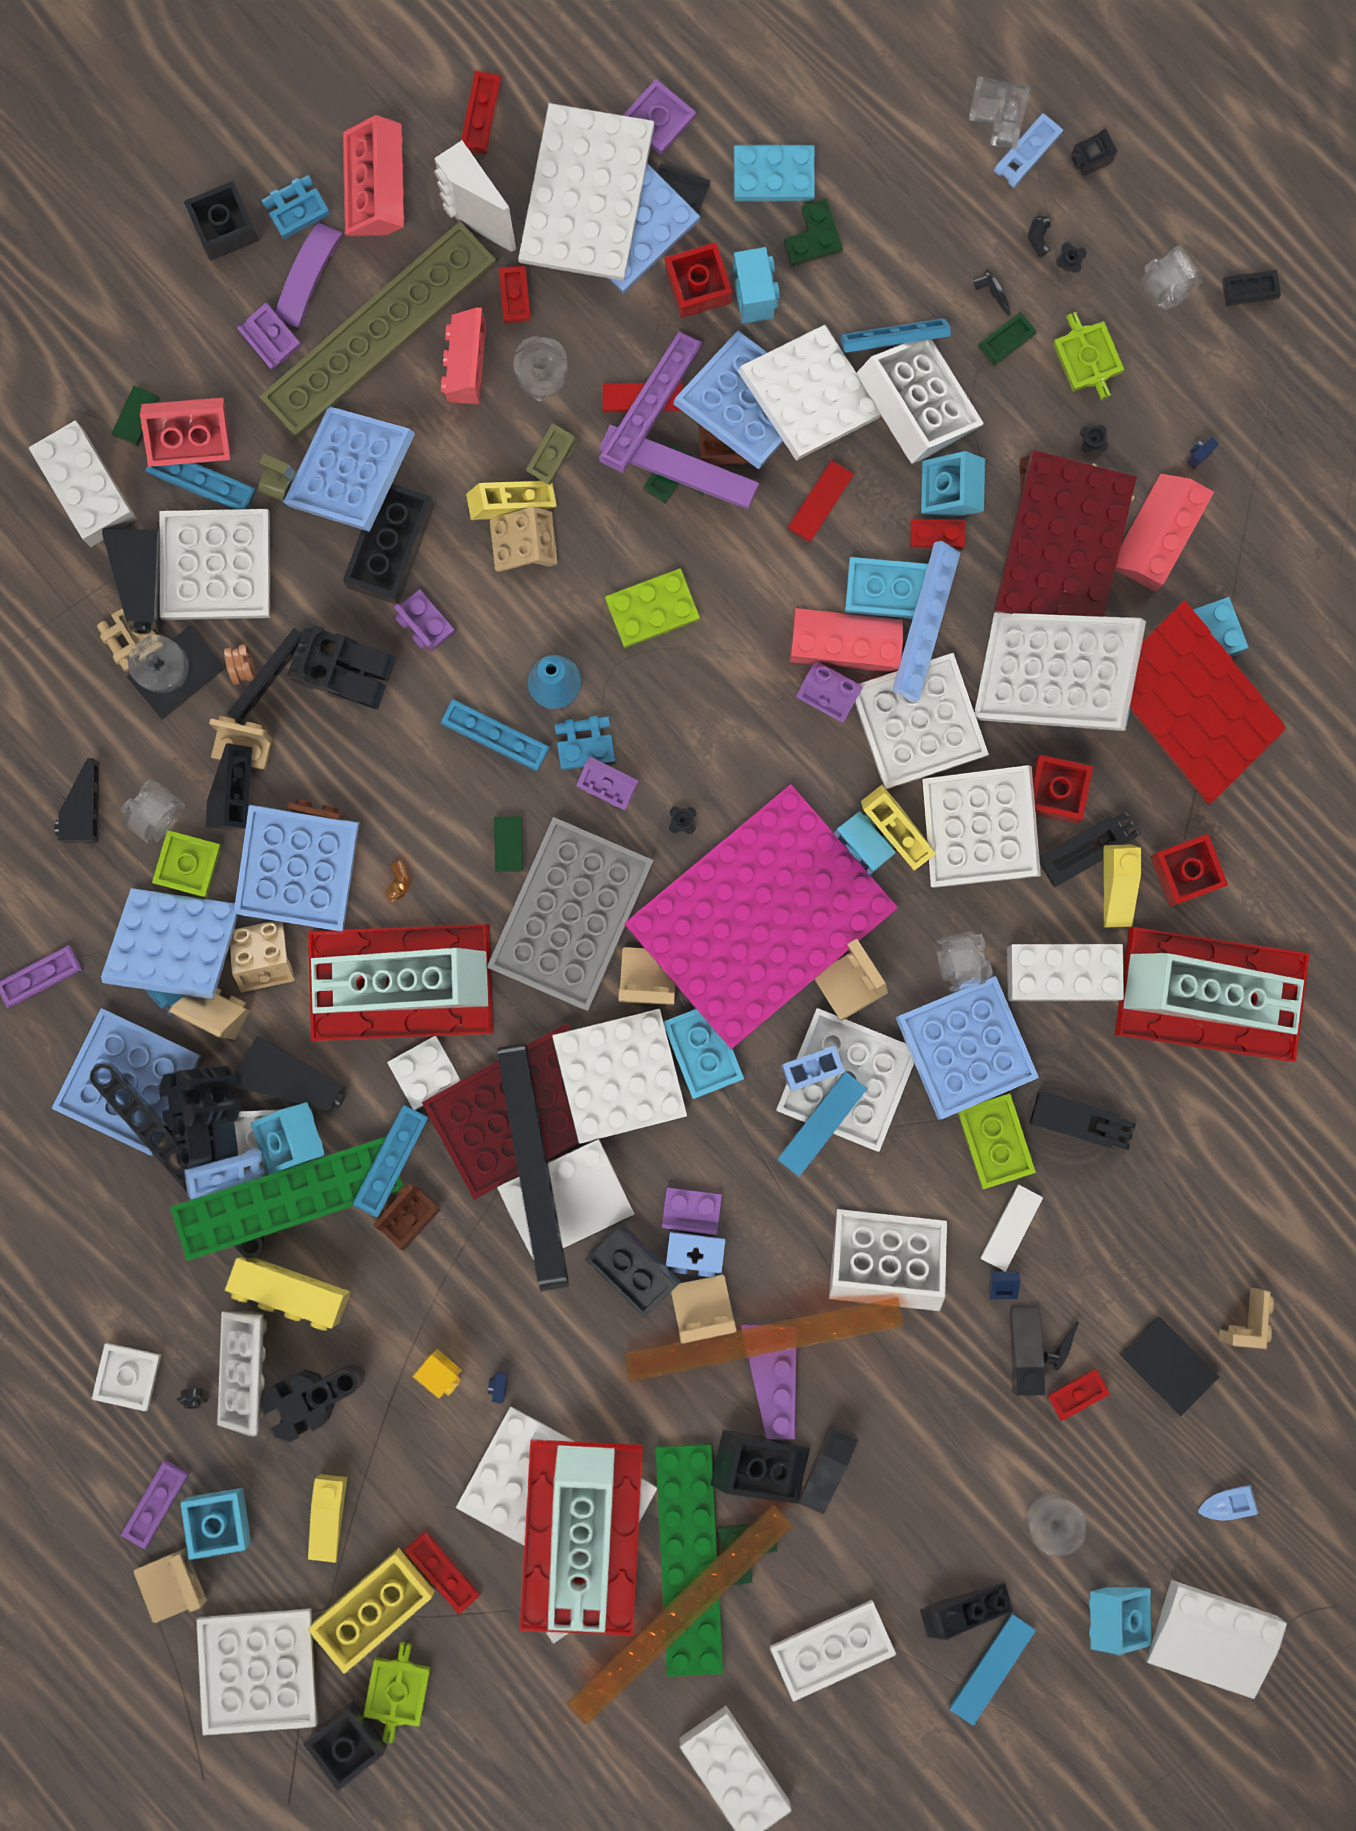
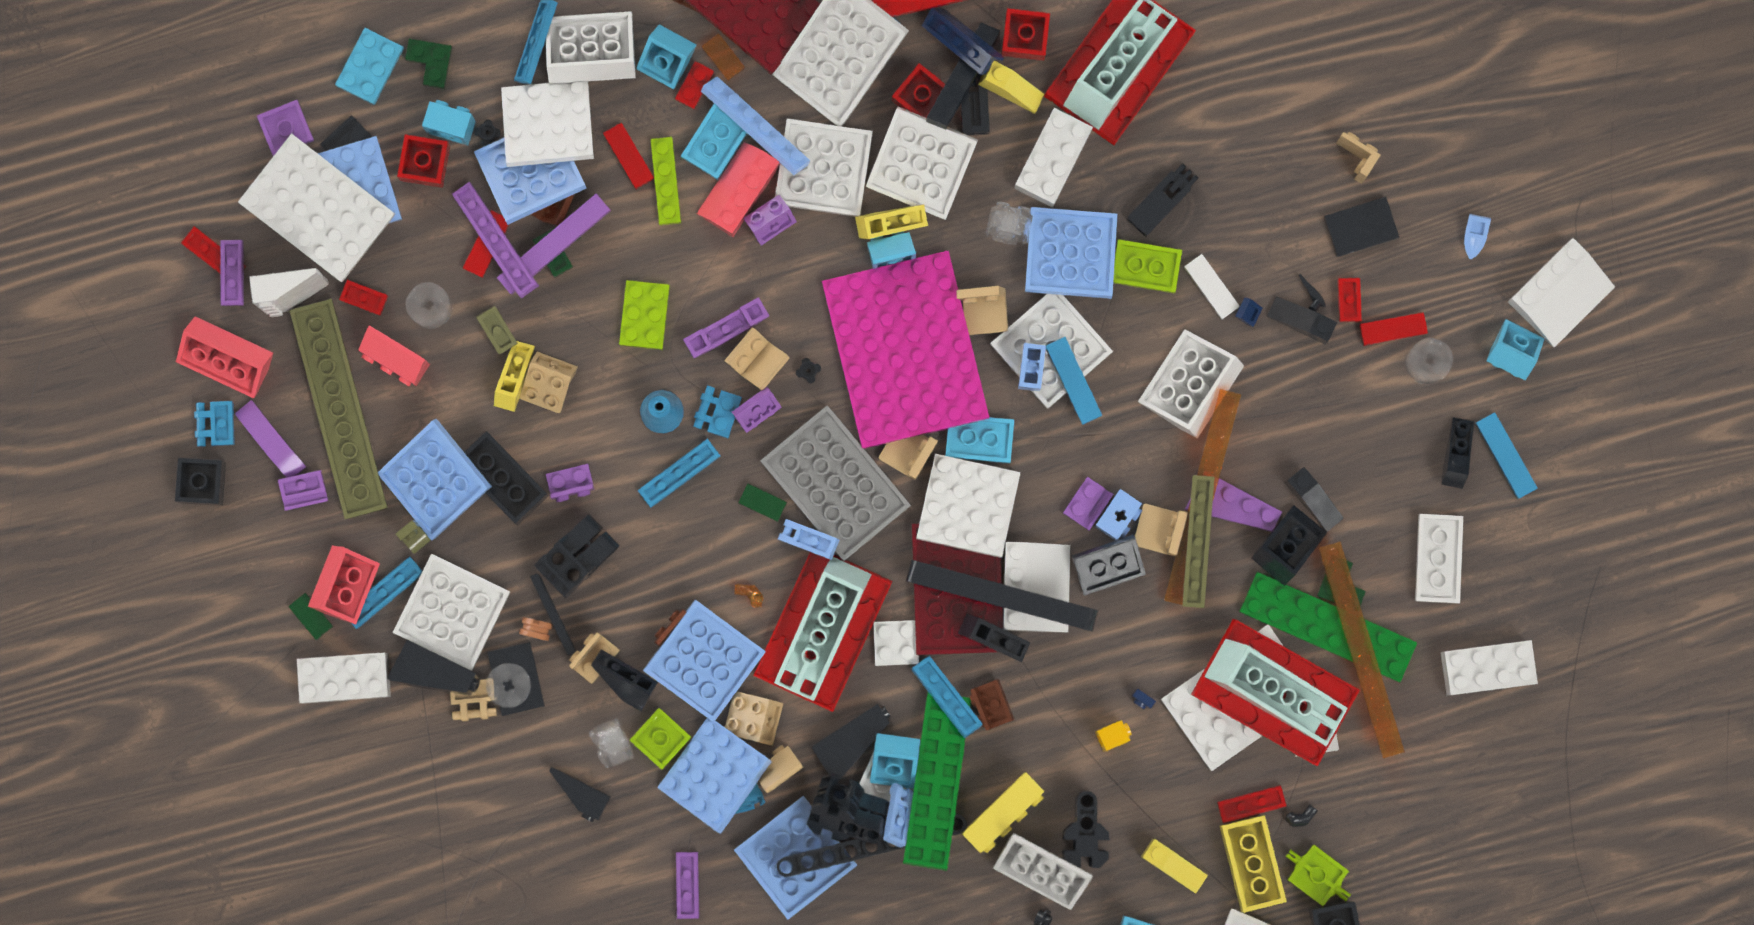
camera: 65 degrees left, 0 degrees up
(452, 1640) = (1303, 819): none -> black arm
(475, 135) = (232, 272): none -> medium lavender tile
(482, 1180) = (994, 637): none -> black slope
(491, 916) = (809, 539): none -> light blue plate
(664, 755) = (756, 359): none -> tan bracket
(682, 705) = (726, 328): none -> medium lavender slope
(709, 1360) = (1198, 541): none -> olive plate
(767, 328) = (487, 126): none -> black plate
(814, 556) = (665, 181): none -> lime plate
(985, 549) = (723, 57): none -> clear orange tile
(1071, 1462) = (1393, 329): none -> red tile
(1103, 823) = (958, 84): none -> black tile
(1144, 800) = (961, 40): none -> dark blue panel

